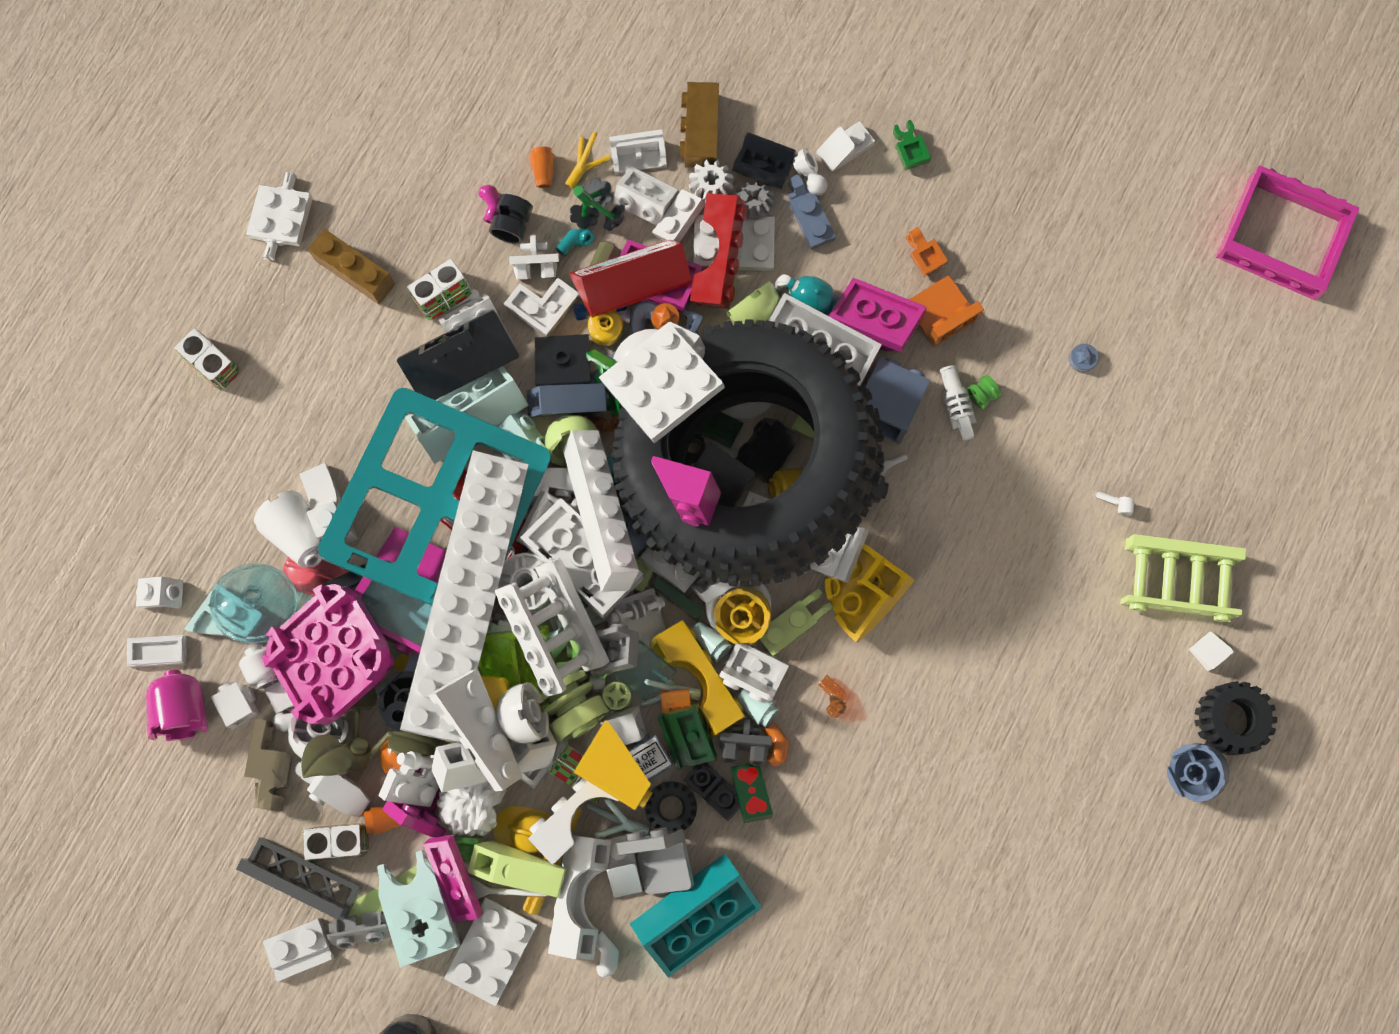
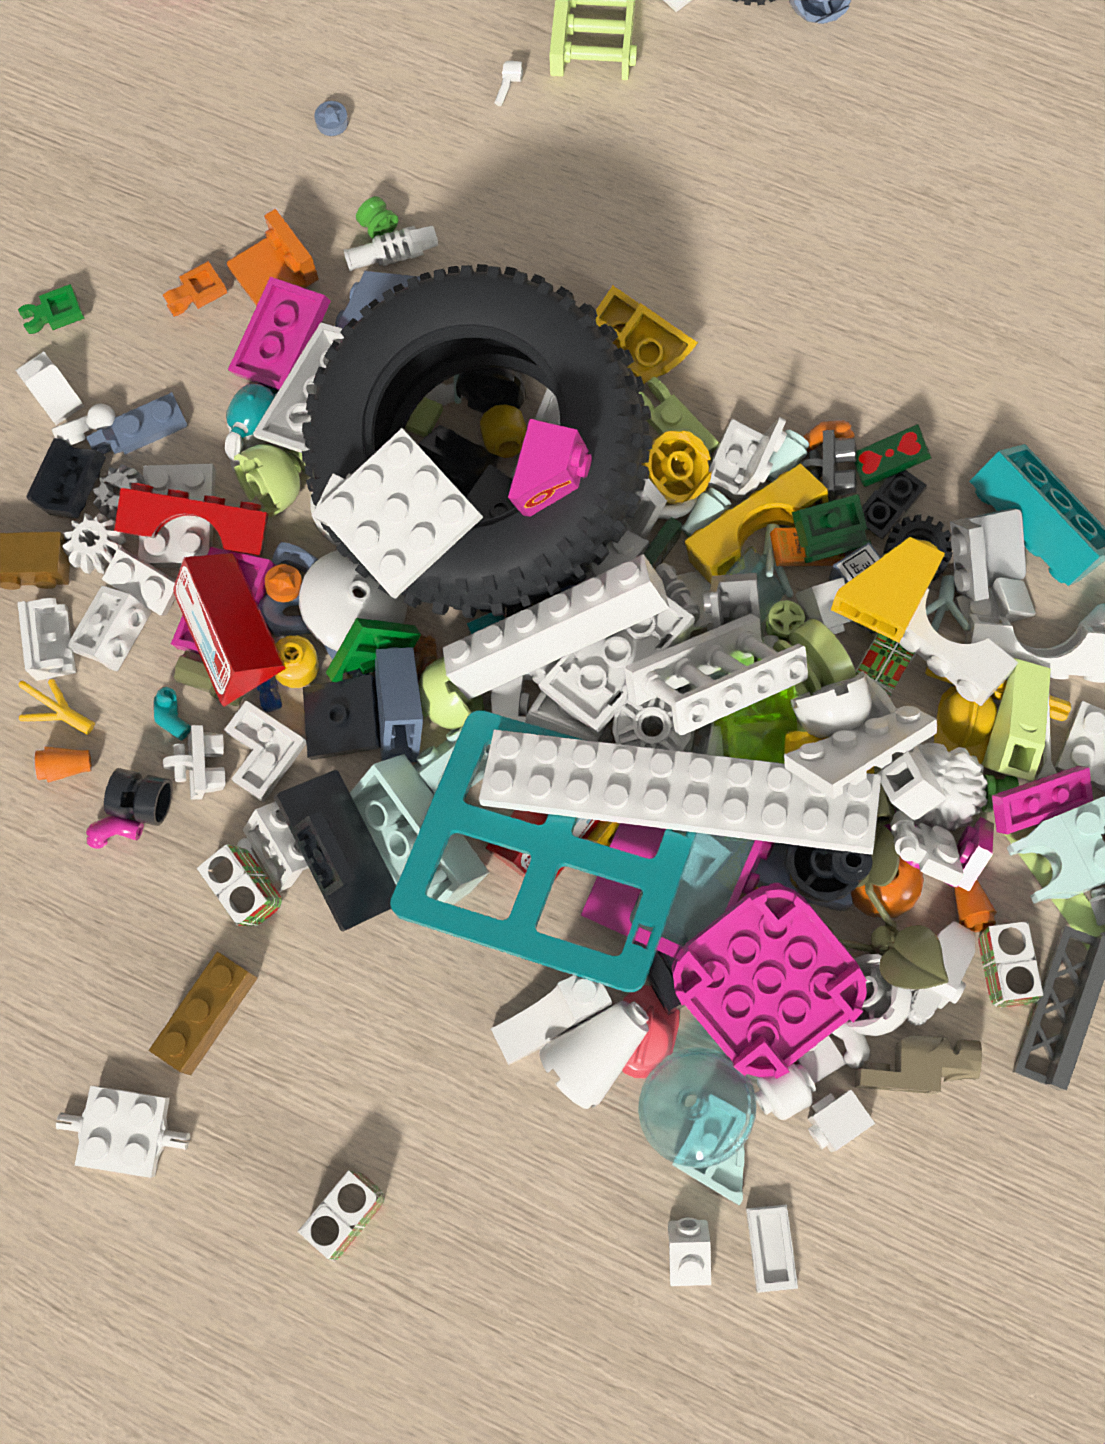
camera: 85 degrees left, 5 degrees down
(175, 707) = (851, 1202): dark pink cylinder -> none
(595, 195) = (106, 688): black plant -> none
(837, 697) = (770, 367): clear orange arm -> none

